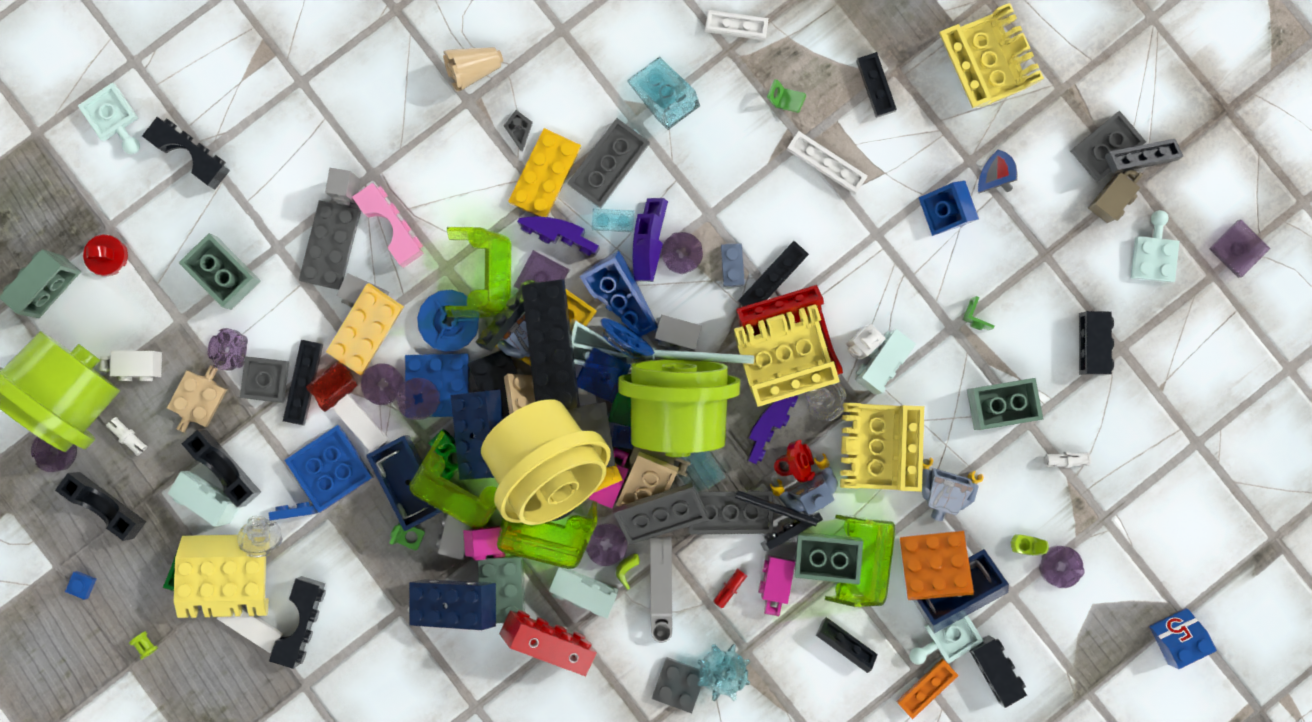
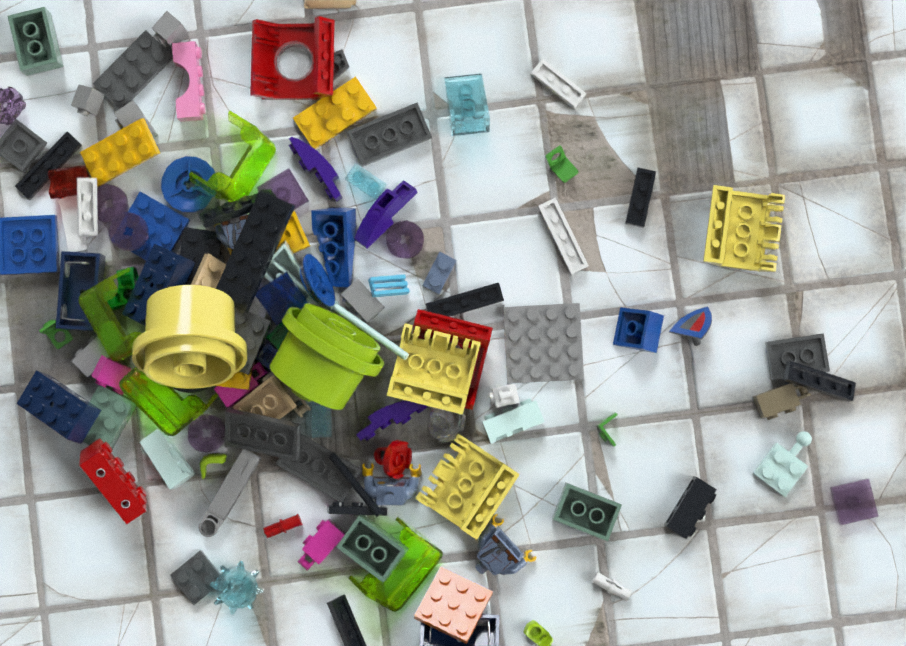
camera: 40 degrees right, 0 degrees up
(303, 298) = (87, 100): none -> light grey brick
(364, 398) = (87, 206): none -> white tile
(476, 146) = (292, 60): none -> red panel
(704, 295) = (383, 284): none -> medium azure tile
(868, 273) = (543, 343): none -> light grey plate

